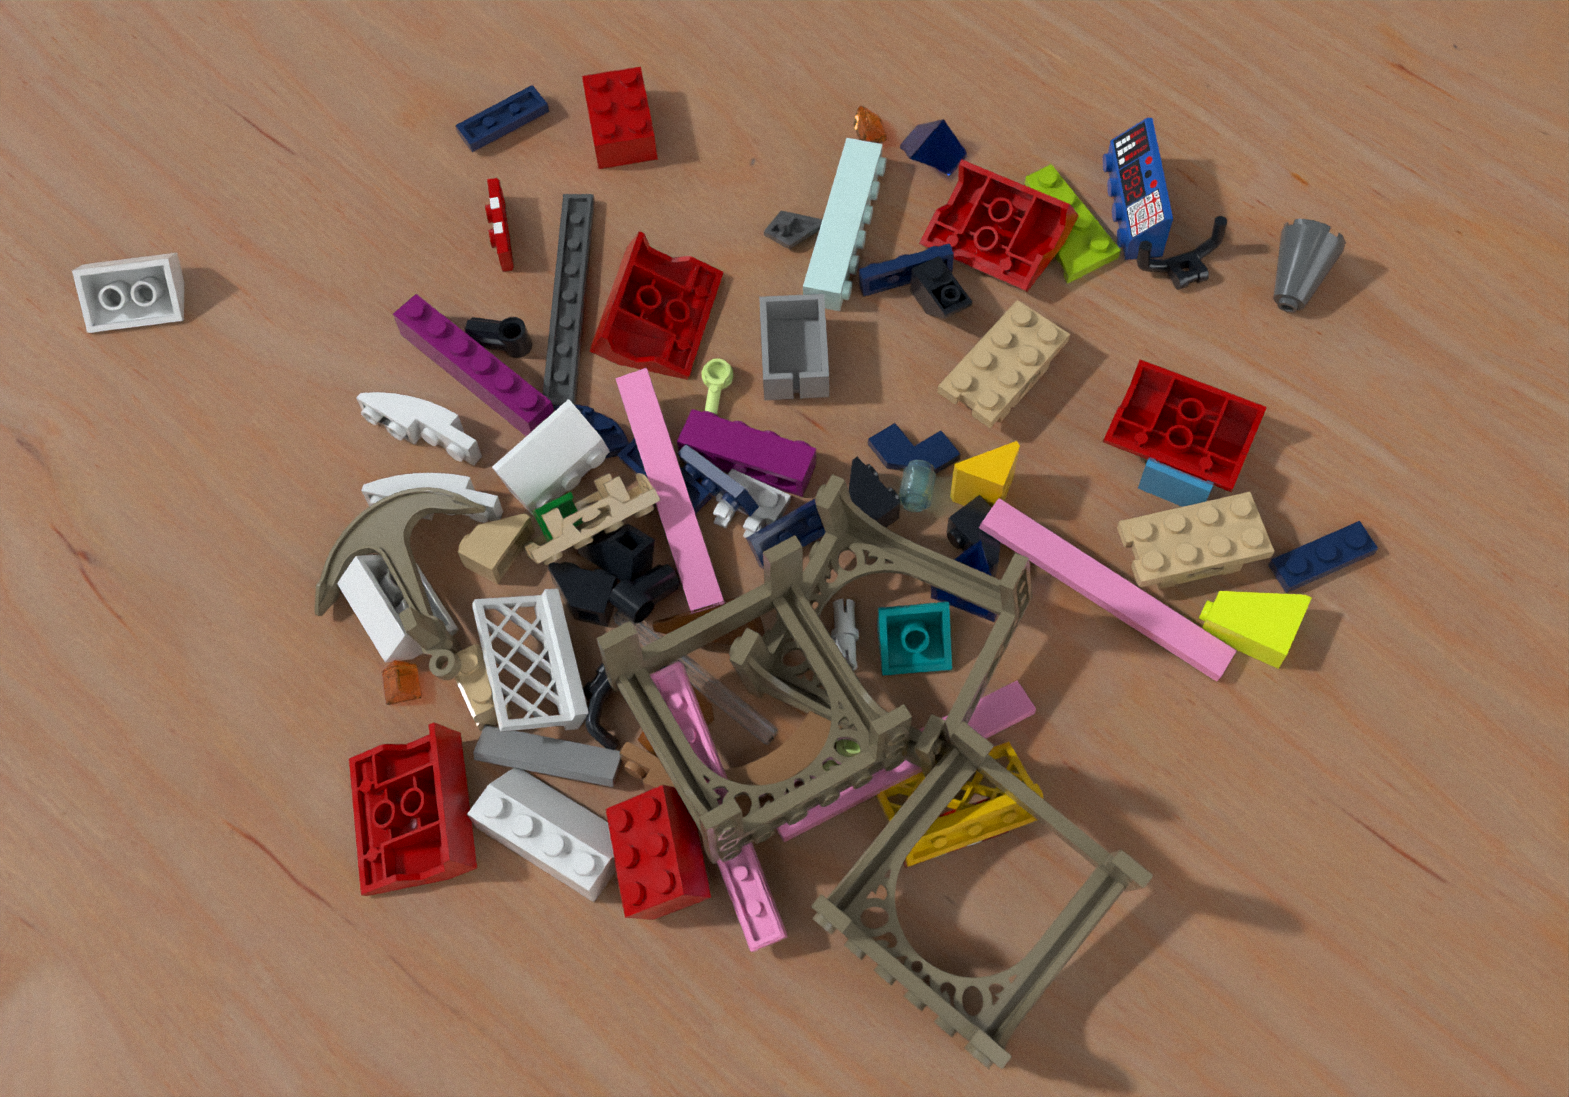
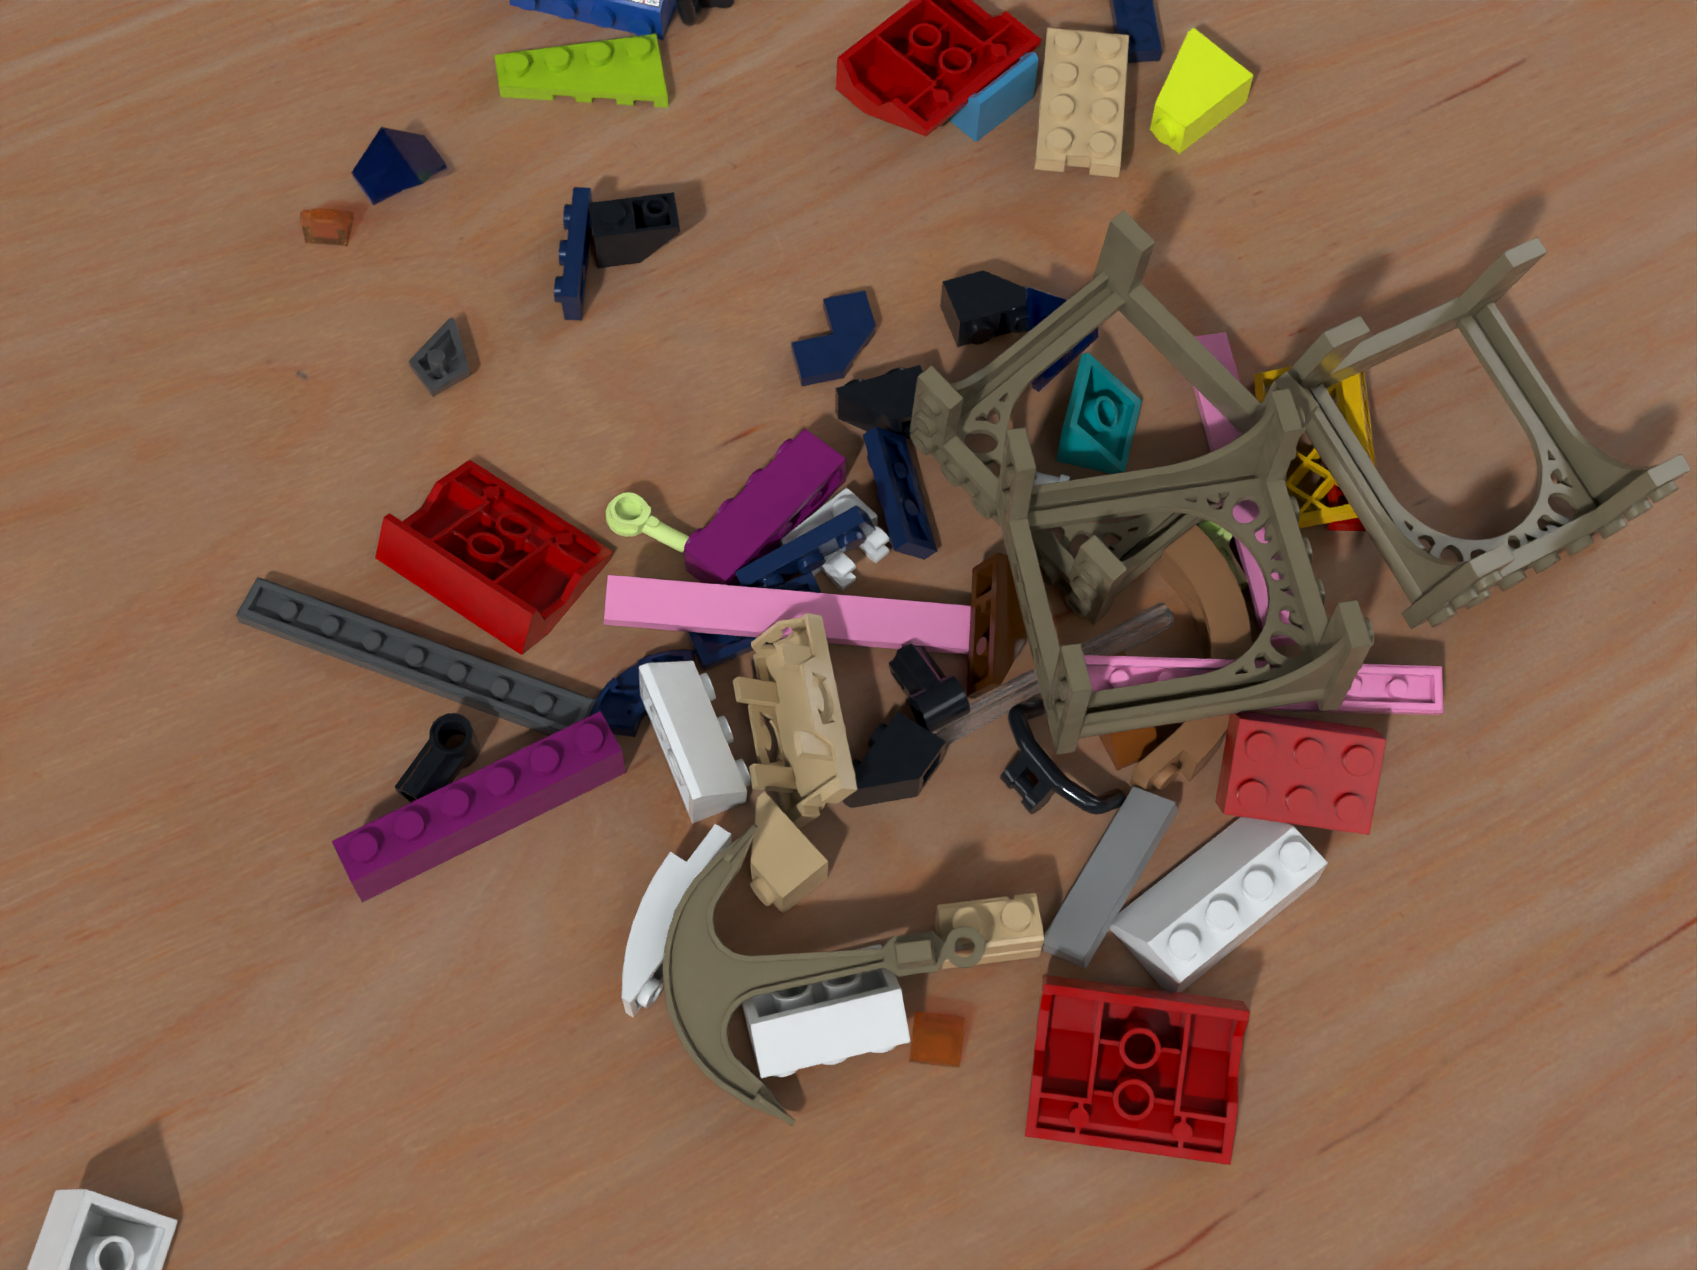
camera: 75 degrees left, 0 degrees up
(418, 418) = (524, 916): white slope -> none
(497, 215) = (261, 711): red plate -> none
(502, 118) = (54, 657): dark blue plate -> none
(559, 661) = (981, 822): white fence -> none
(566, 507) = (776, 760): green panel -> none
(619, 117) = (147, 501): red brick -> none
(621, 552) = (866, 693): black slope -> none
(794, 346) = (639, 406): light grey piece -> none
(843, 222) = (480, 302): light aqua brick -> none
(917, 486) = (891, 345): clear light blue brick -> none
(985, 475) = (931, 257): yellow slope -> none
(1000, 226) = (565, 132): red piece -> none
(1004, 364) = (770, 196): tan piece -> none
(1108, 590) = (1090, 214): bright pink tile -> none

